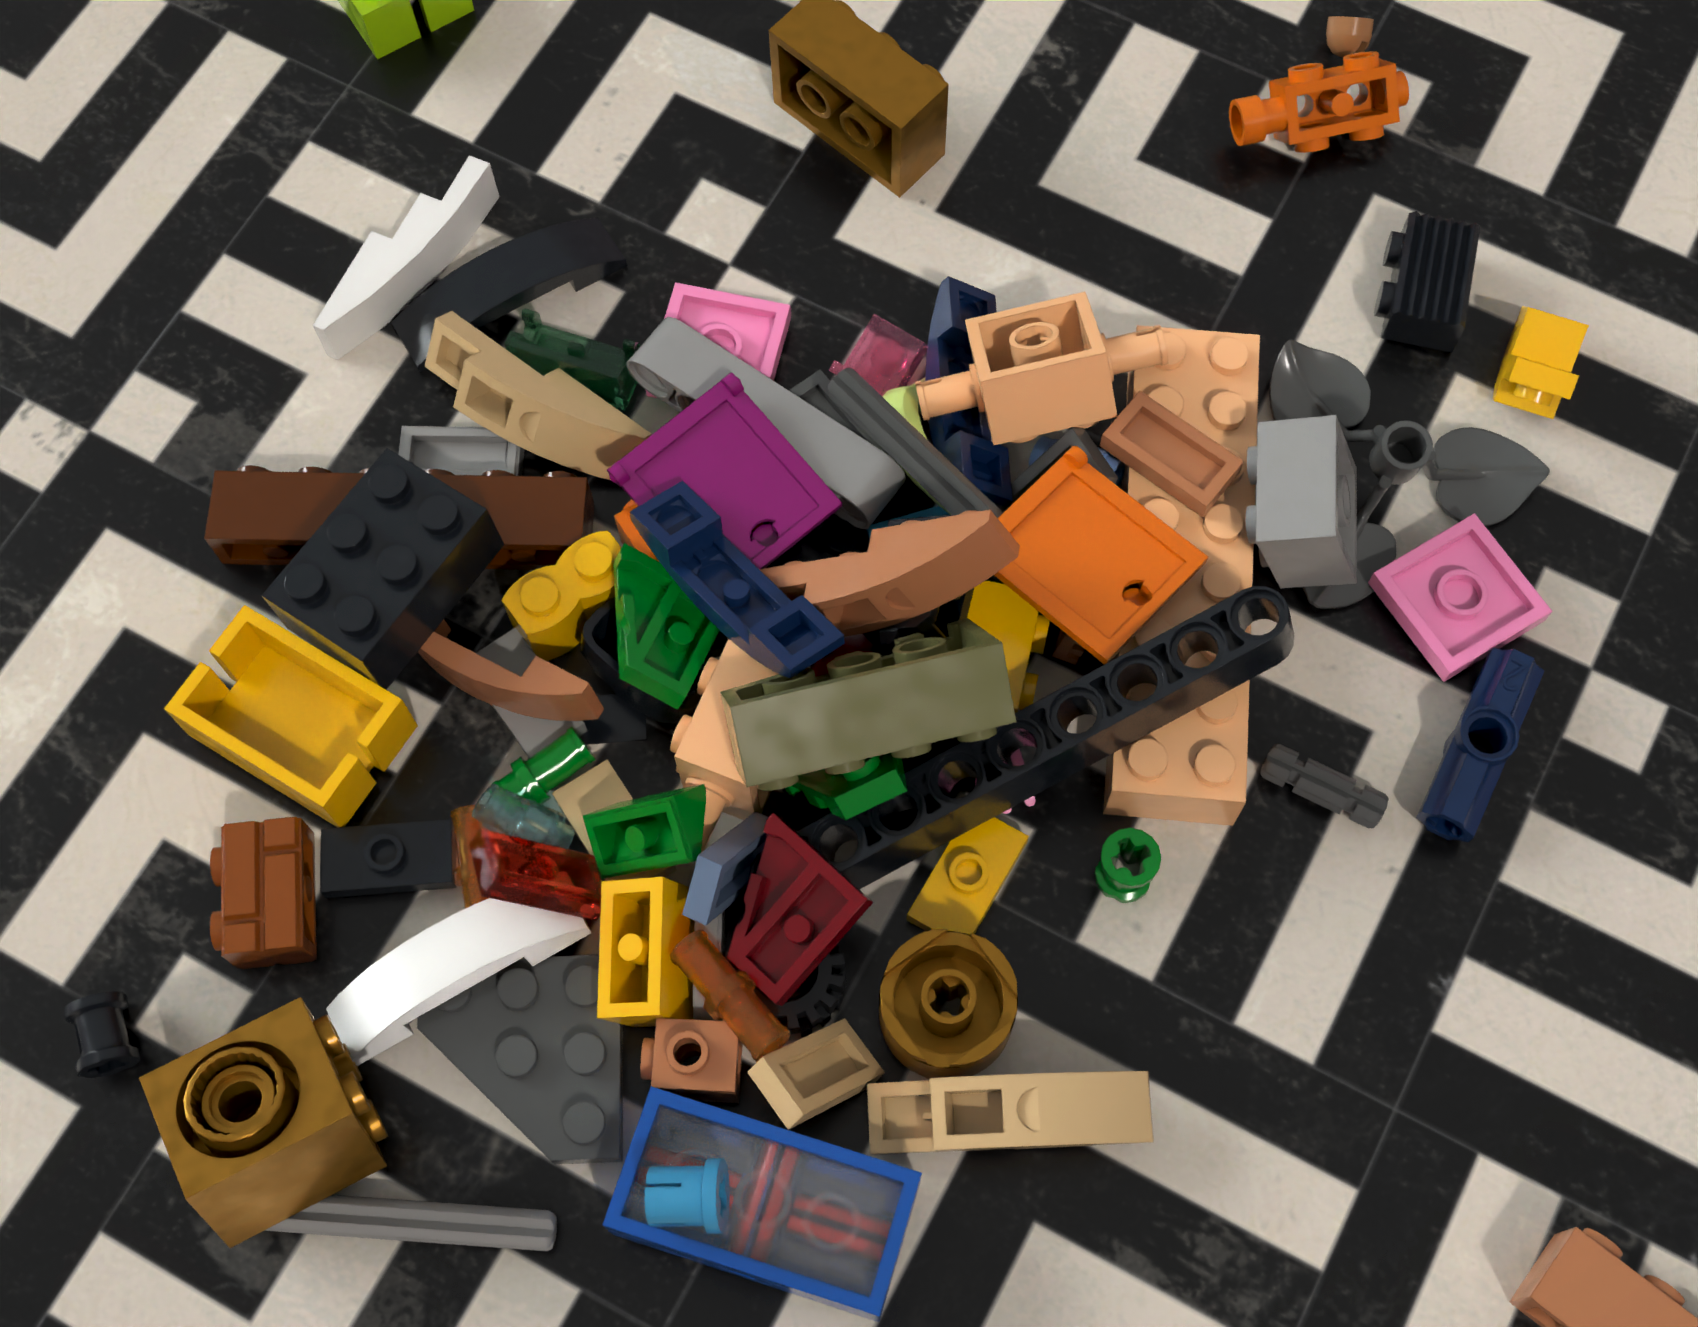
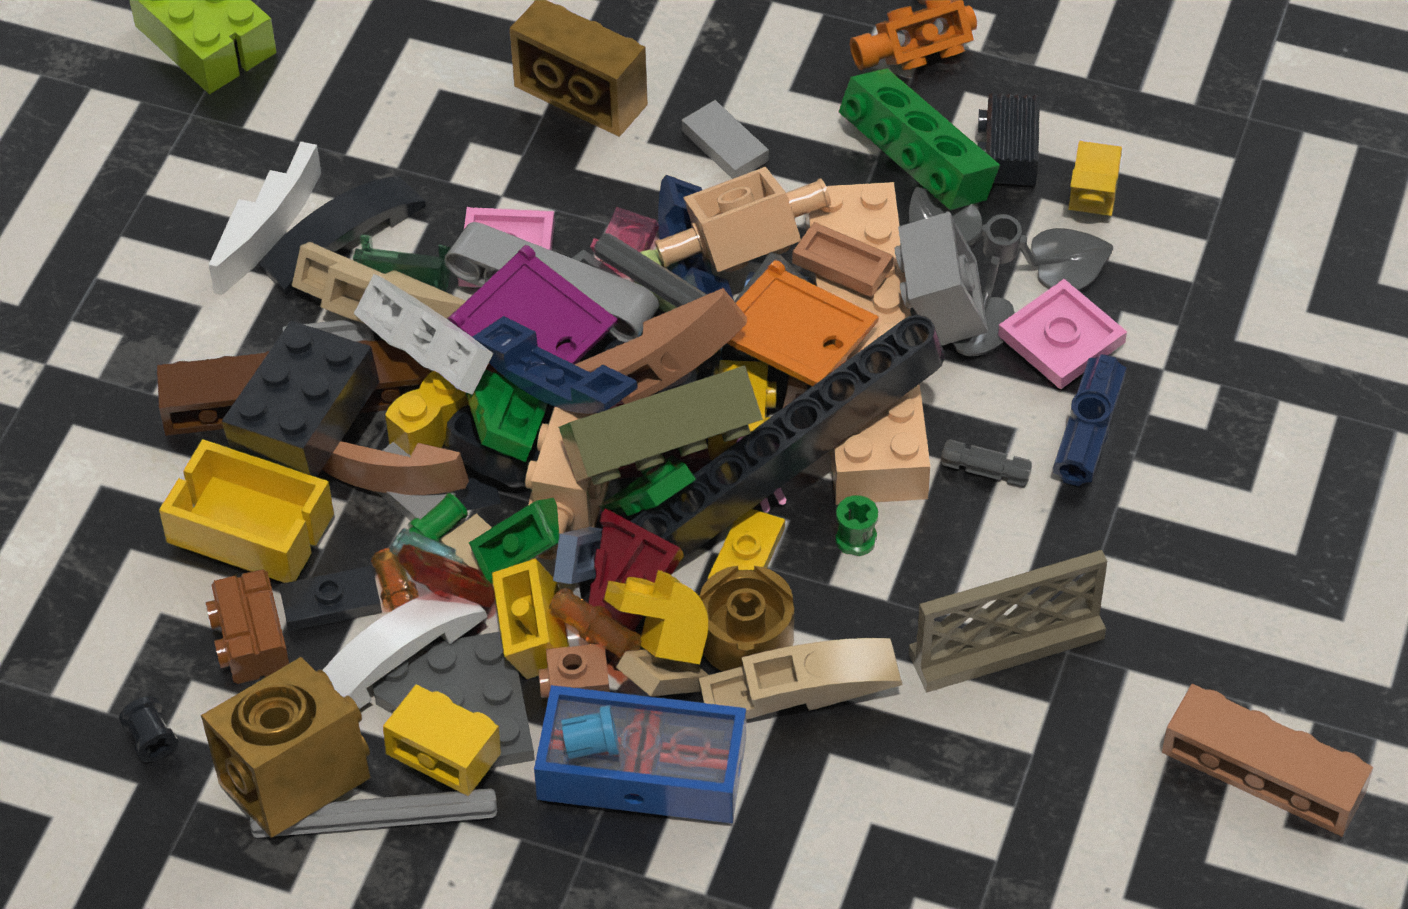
camera: 10 degrees left, 15 degrees down
(489, 1135) = (442, 739): none -> yellow brick
(571, 488) = (423, 334): none -> white slope
(832, 1002) = (674, 615): none -> yellow brick
(1039, 224) = (725, 140): none -> light grey tile
(1303, 266) = (919, 138): none -> green brick
(1322, 1080) = (1000, 641): none -> dark tan fence

